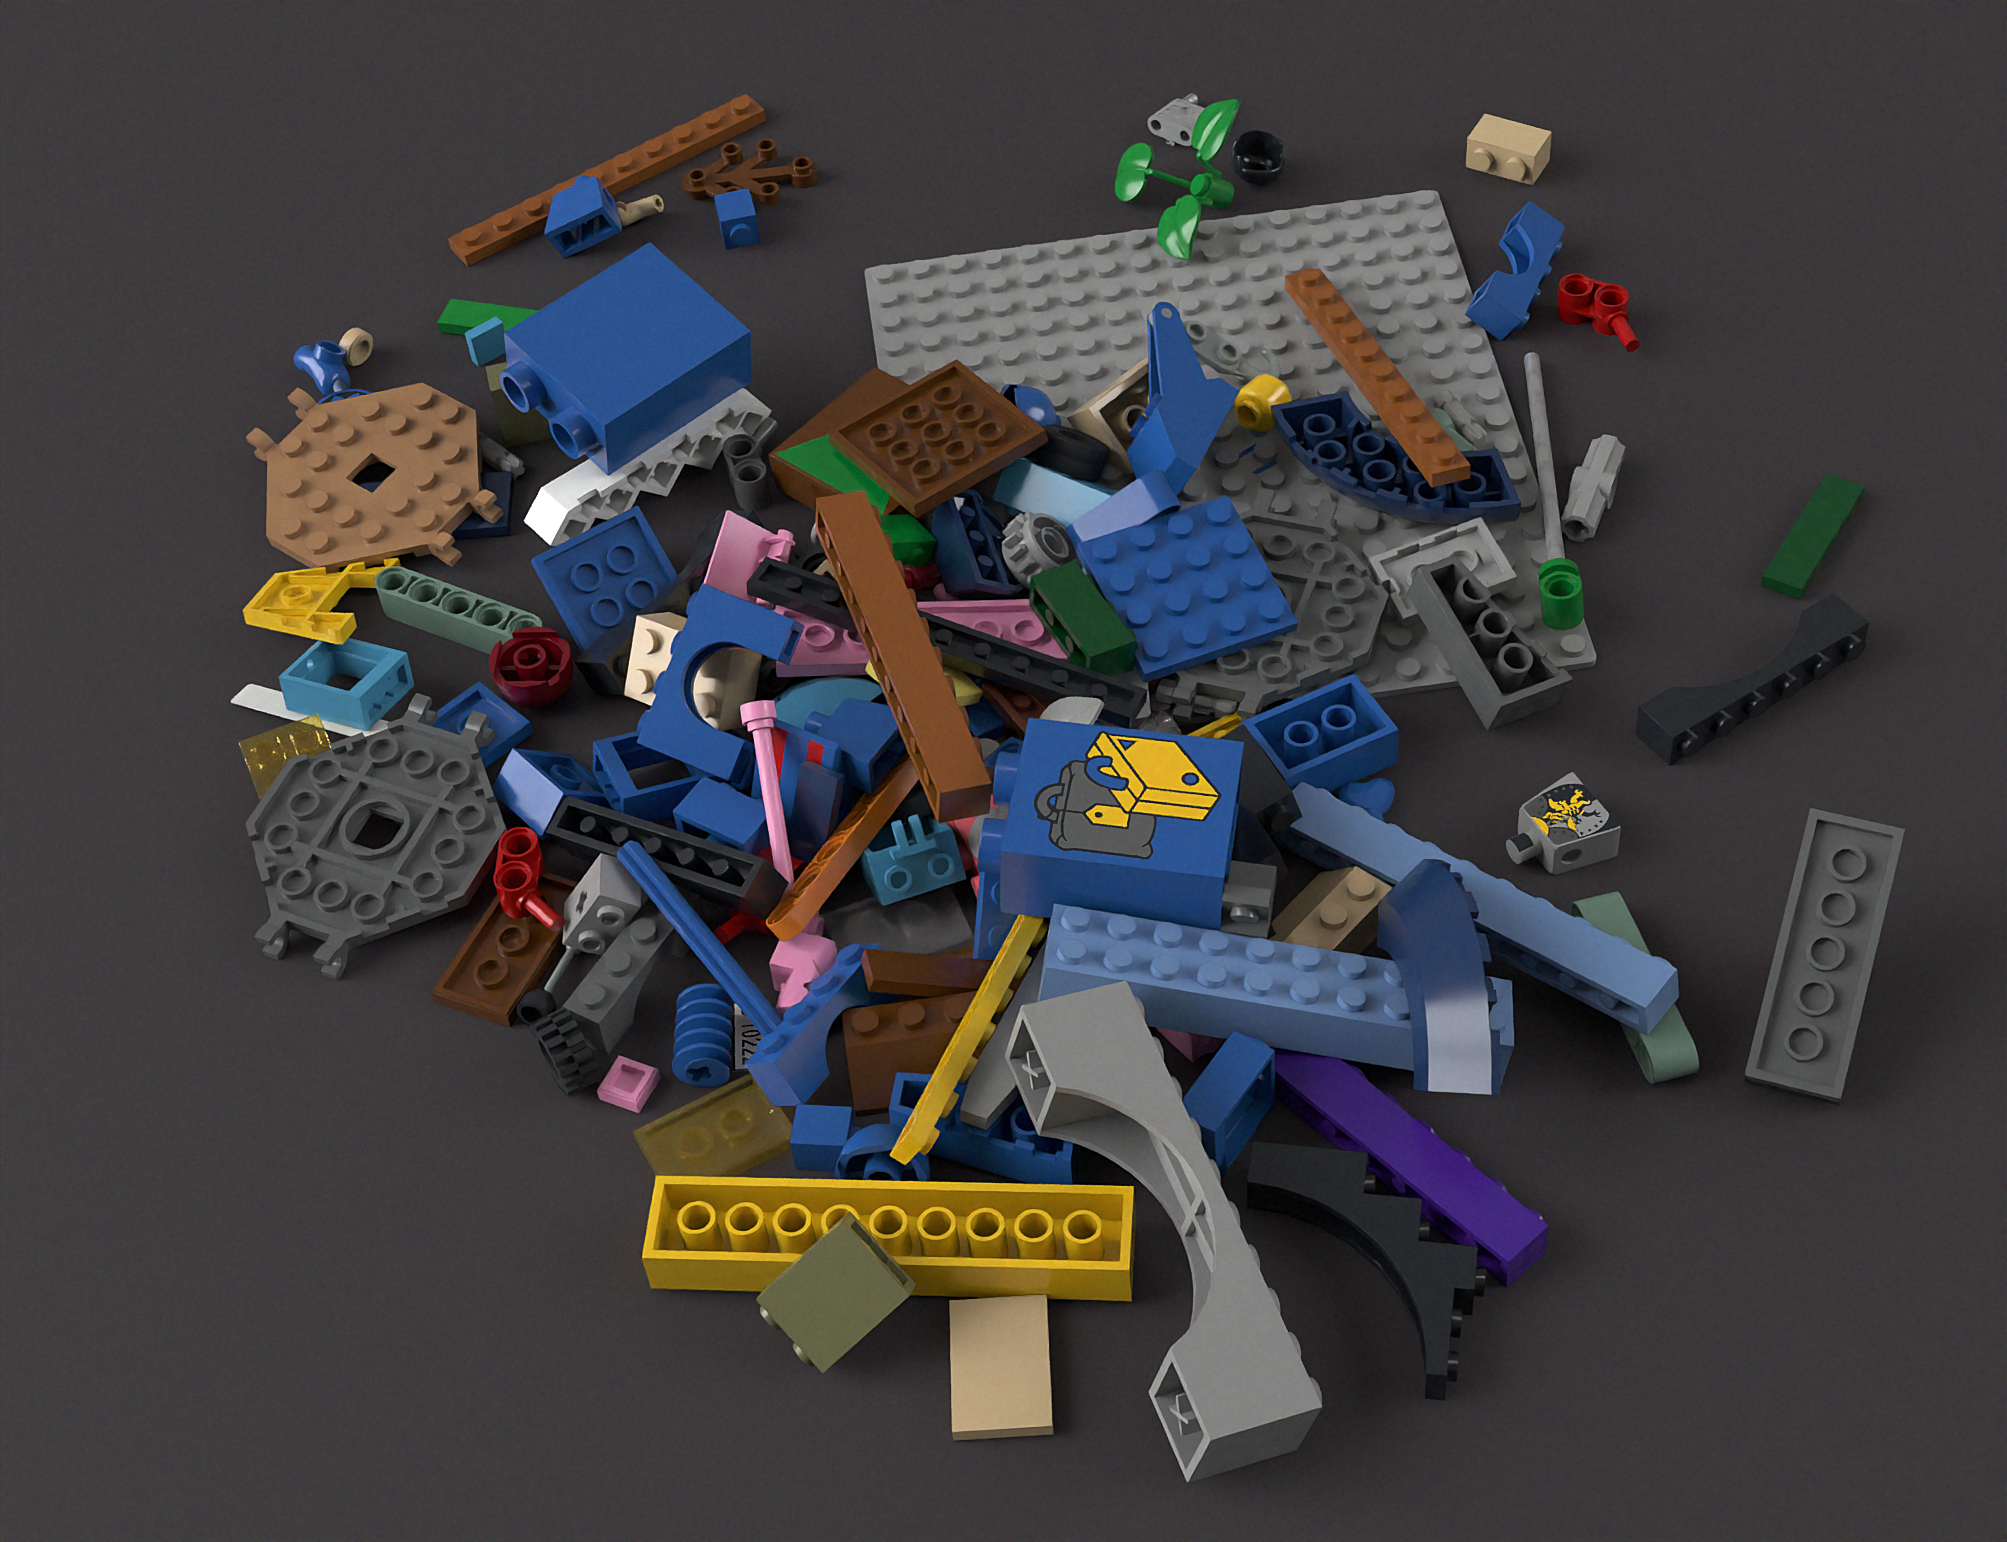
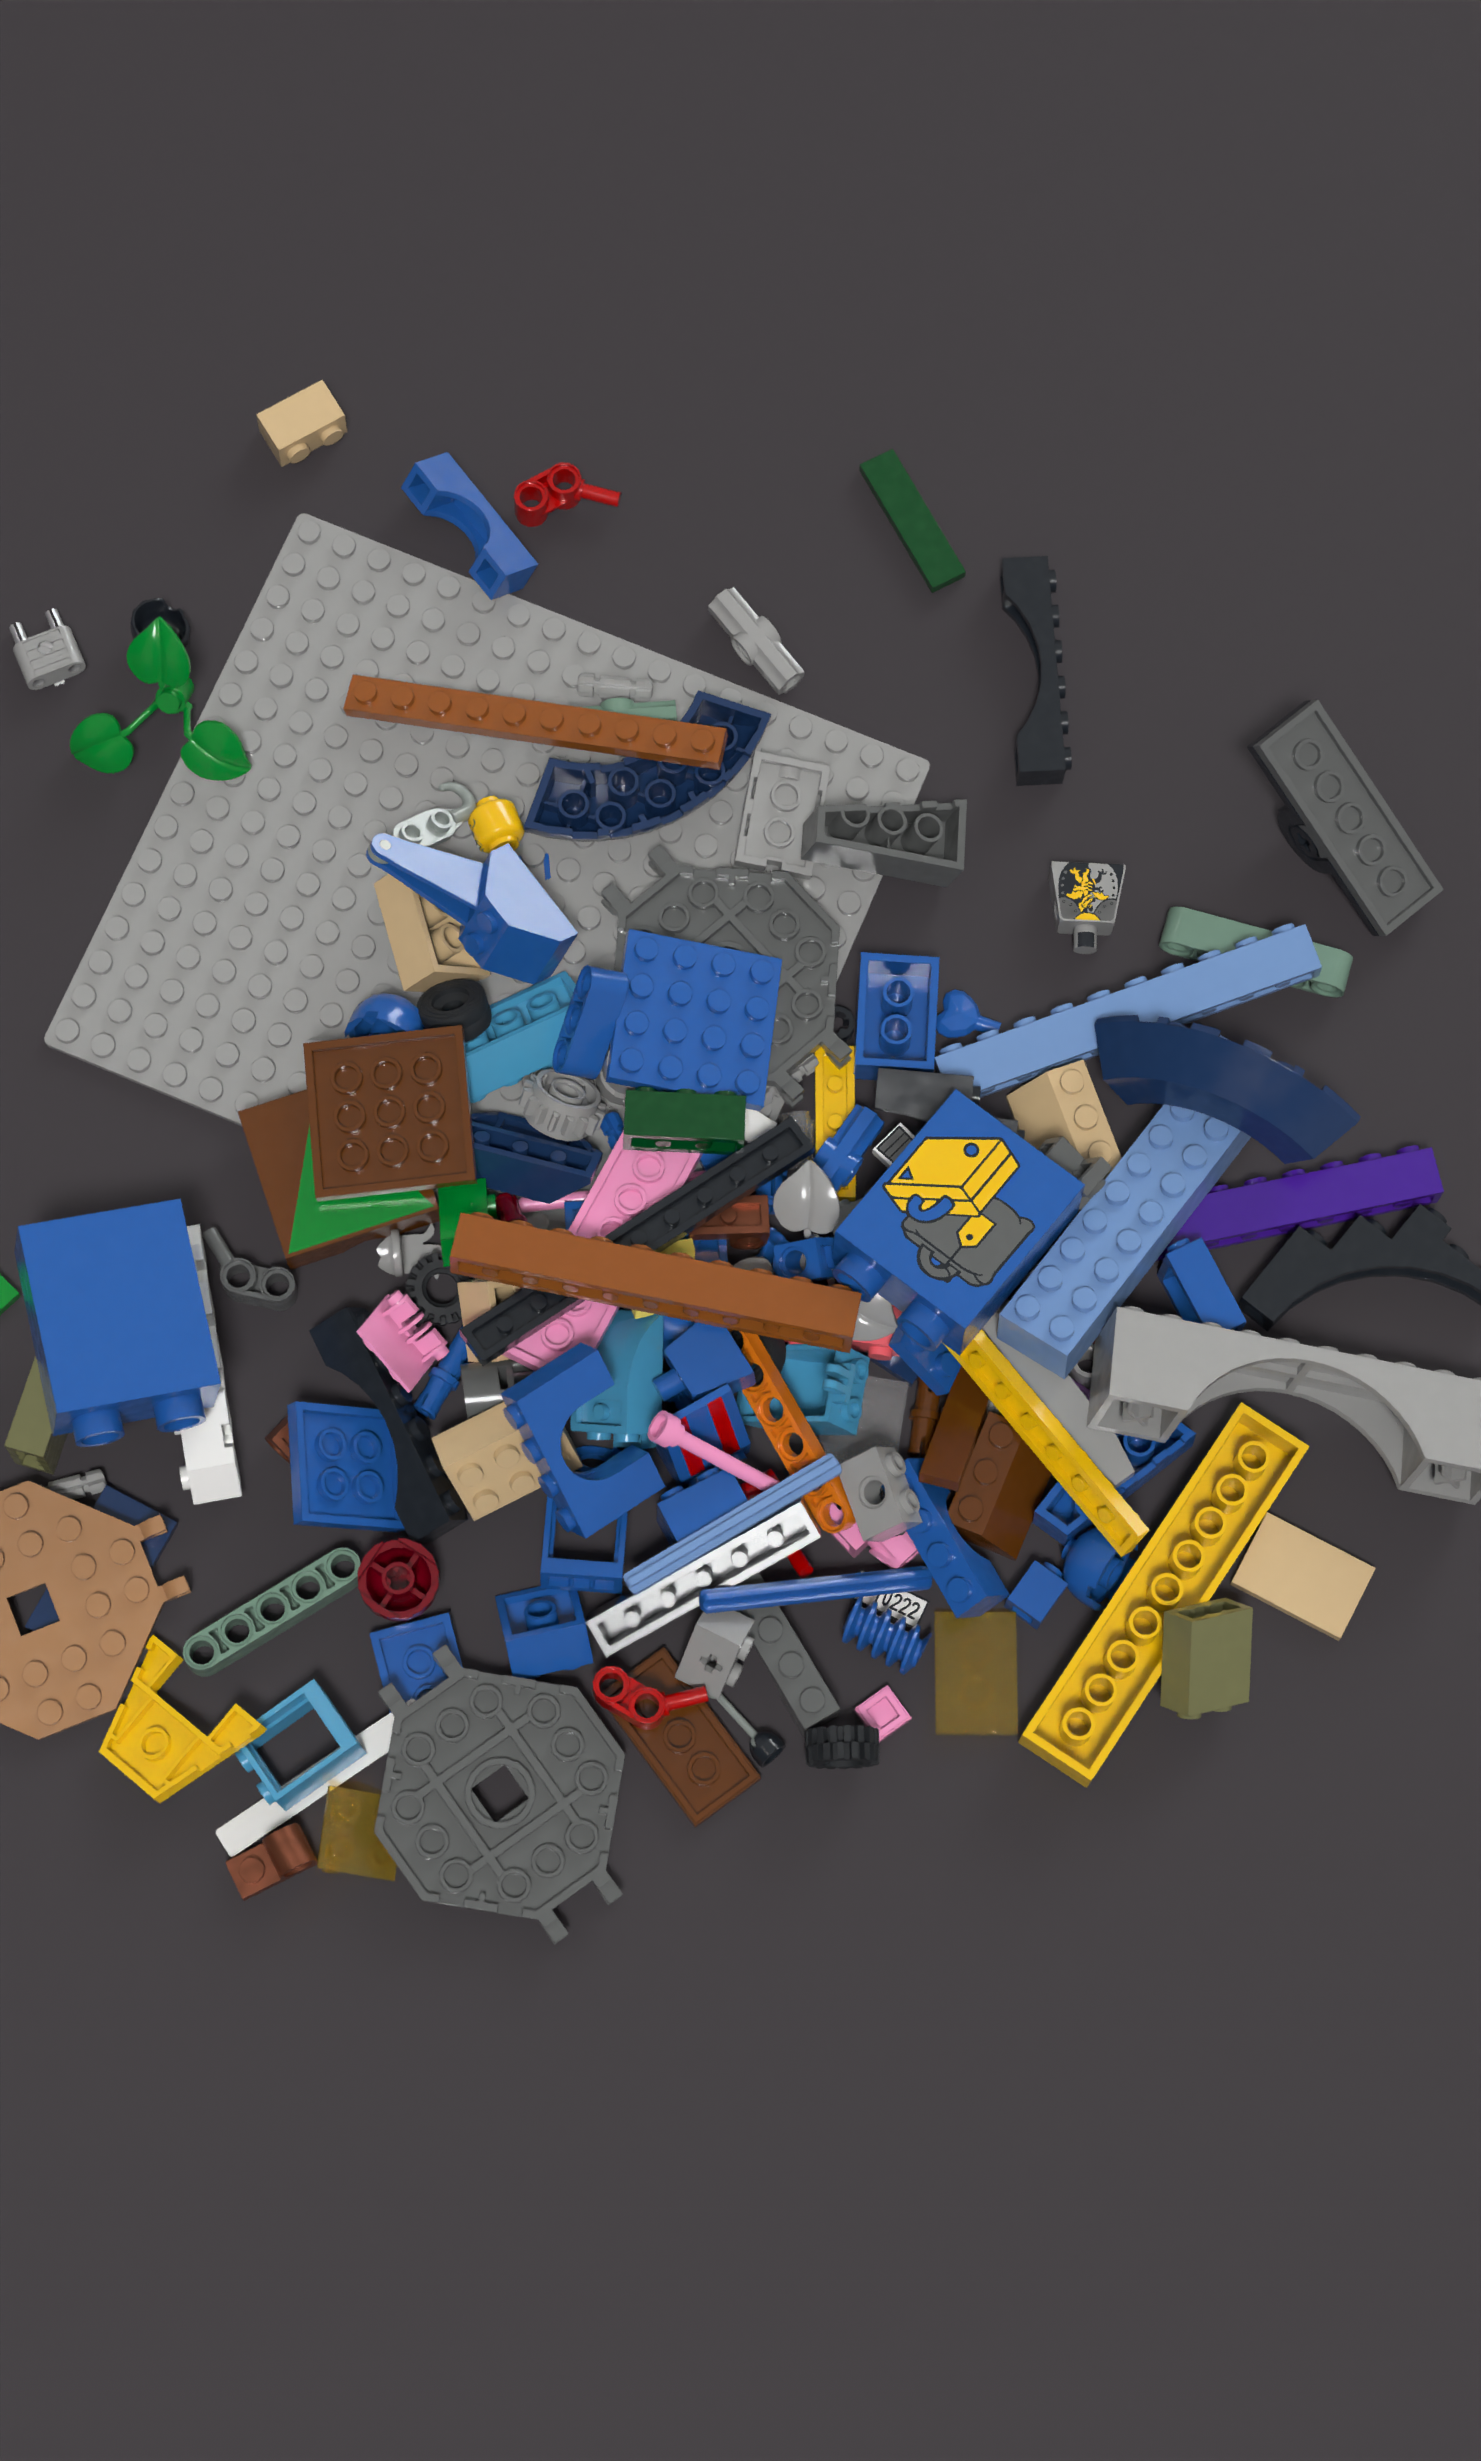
camera: 70 degrees left, 25 degrees up
(232, 722) = (272, 1862): none -> copper plate
(697, 824) = (732, 1524): none -> medium blue axle
(814, 809) = (748, 1436): dark blue tile -> none
(825, 935) = (862, 1482): none -> light grey brick
(1558, 577) = (852, 737): piece -> none

